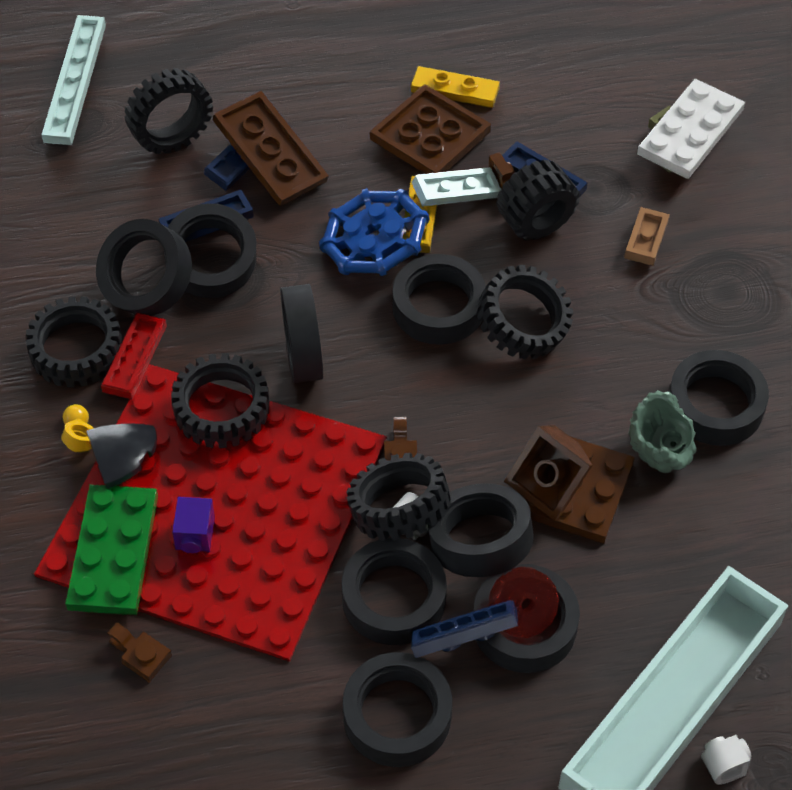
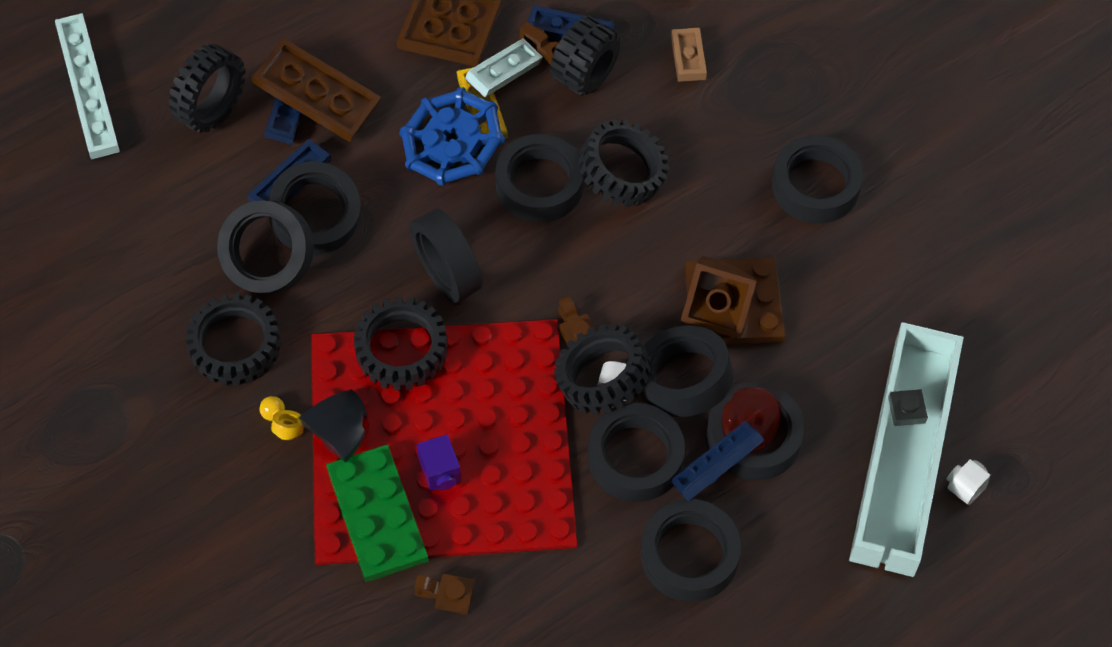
camera: 25 degrees left, 5 degrees up
(134, 356) = (295, 332): red plate -> none
(662, 432) = (783, 224): sand green hair -> none
(689, 653) = (907, 407): none -> pearl dark grey plate

